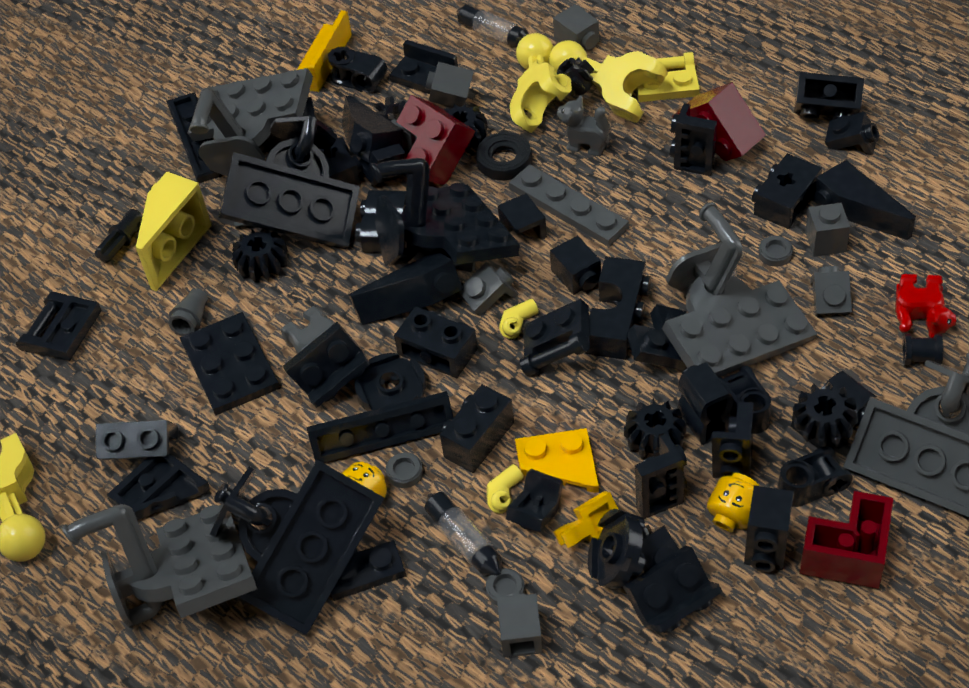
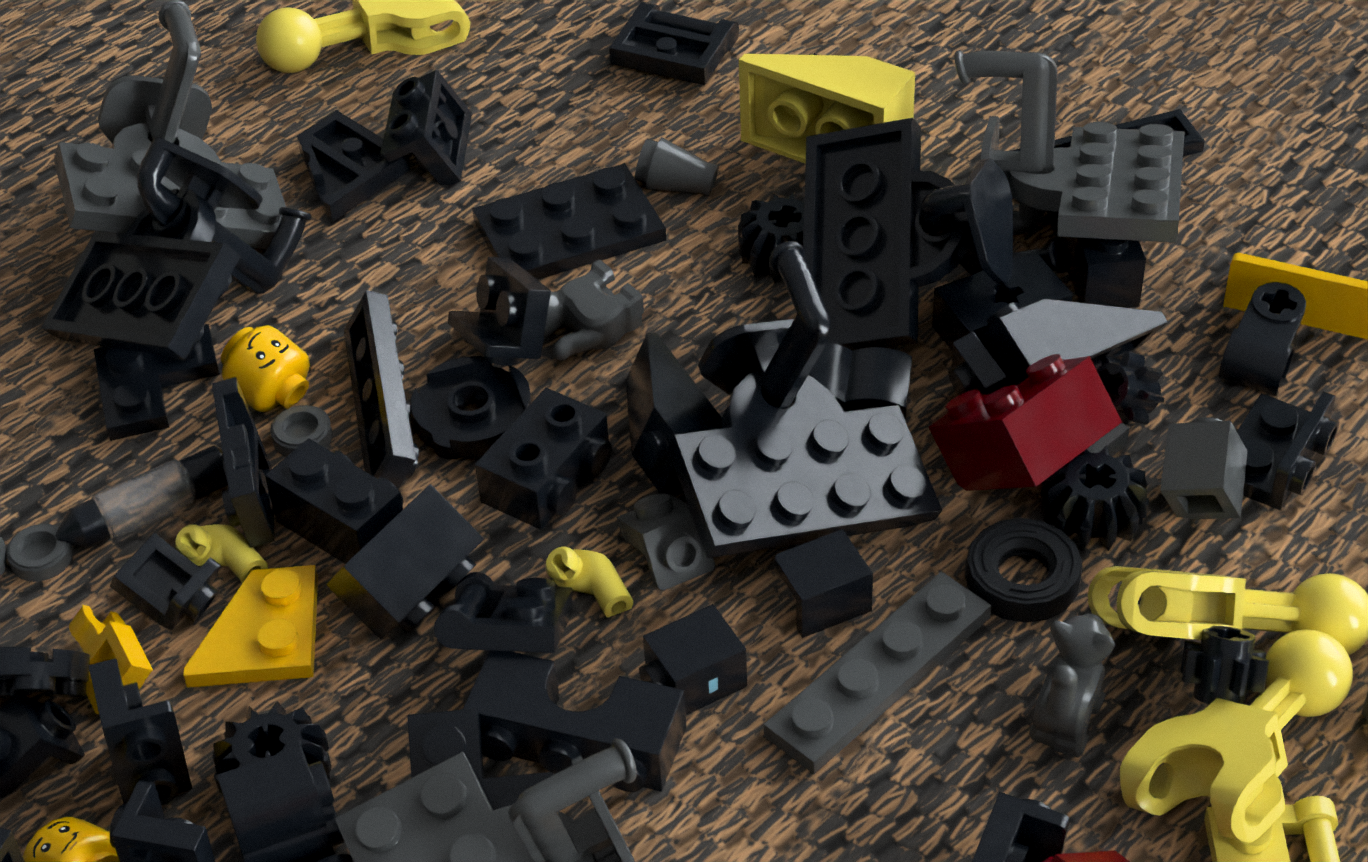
camera: 90 degrees right, 5 degrees down
(459, 468) = (244, 465): none -> black wing
(531, 387) = (405, 562): none -> black brick

